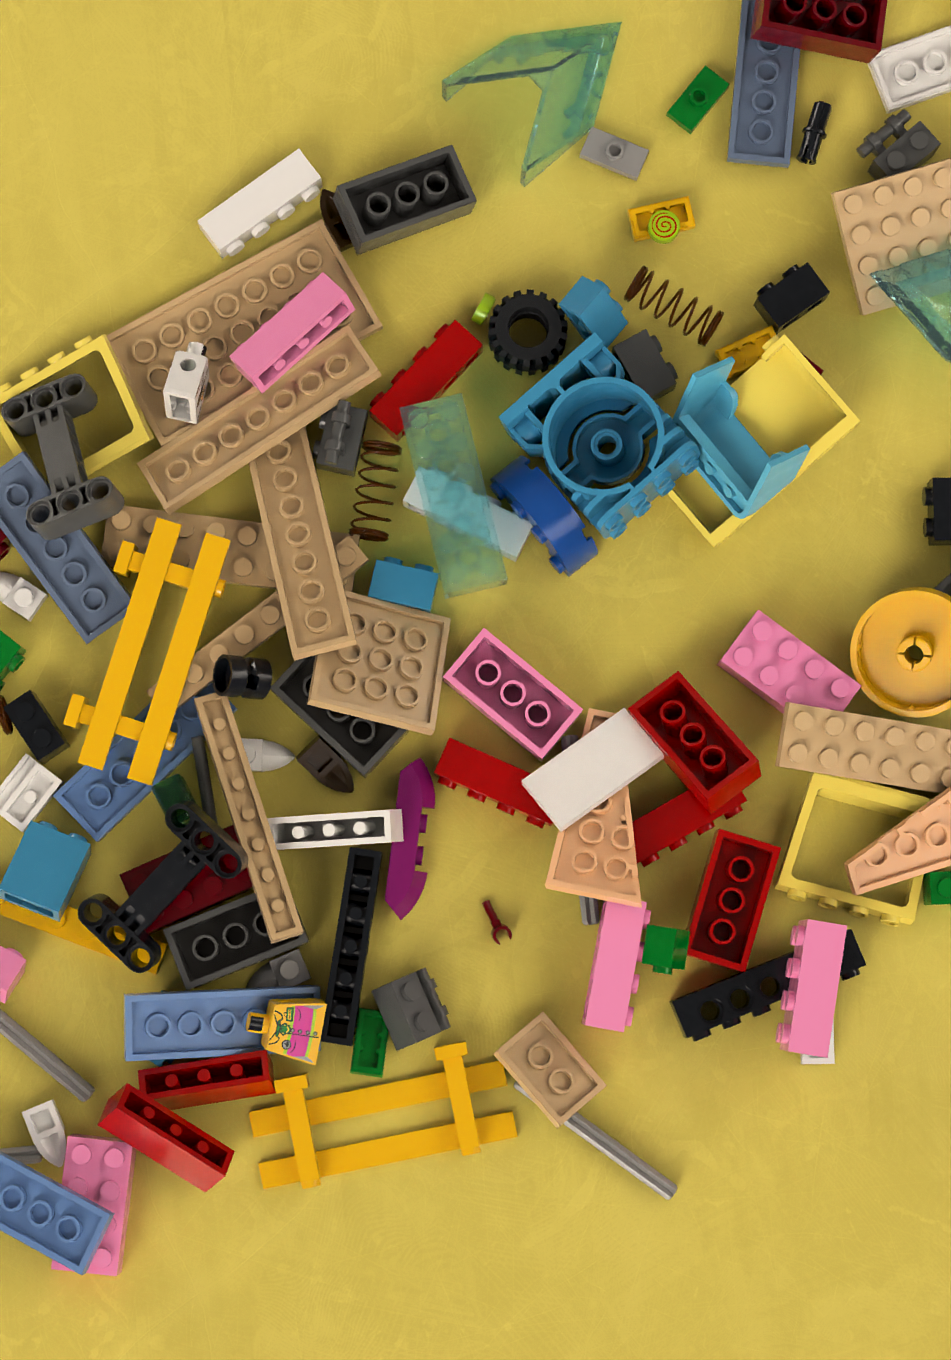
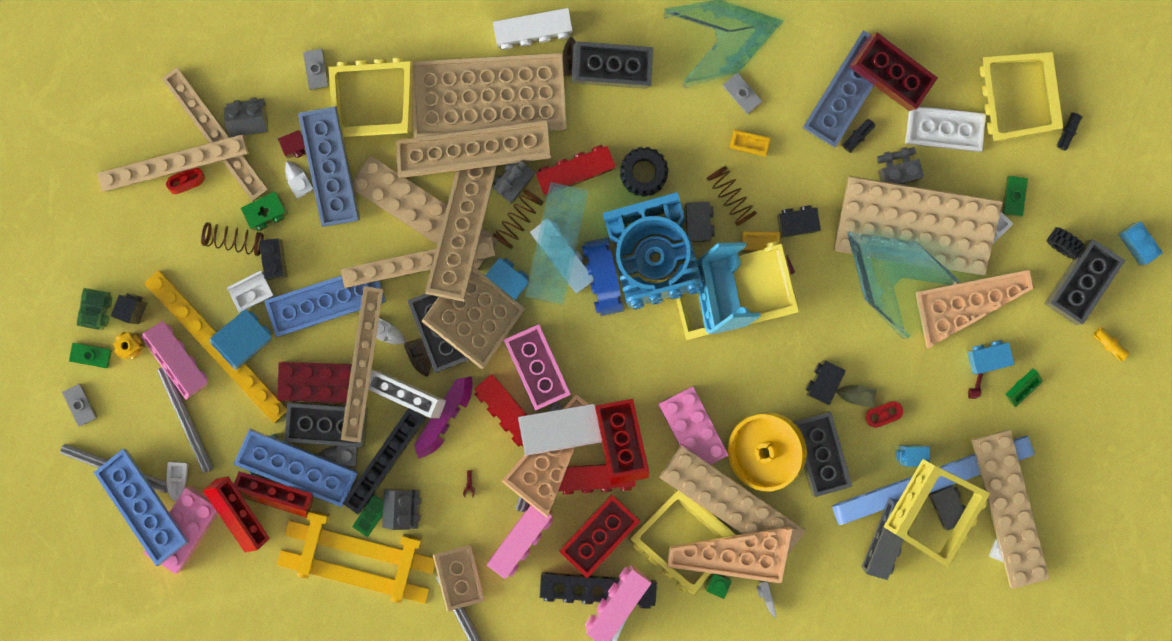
camera: 30 degrees right, 5 degrees up
(74, 498) = (355, 119): dark grey beam -> none
(152, 571) = (312, 273): yellow fence -> none
(162, 887) = (297, 381): black beam -> none
(171, 792) = (328, 336): clear green brick -> none
(186, 383) = (443, 110): white torso -> none
(203, 776) = (349, 333): dark grey bar -> none
(242, 677) = (395, 287): black wheel -> none
(290, 1027) = (330, 488): torso -> none
(292, 332) = (514, 110): bright pink brick -> none
(483, 309) = (626, 146): lime tile -> none
(593, 310) = (685, 178): dark azure brick -> none
(663, 226) = (747, 149): lime tile -> none
(665, 948) = (550, 545): green brick -> none
(697, 99) = (803, 85): green plate -> none

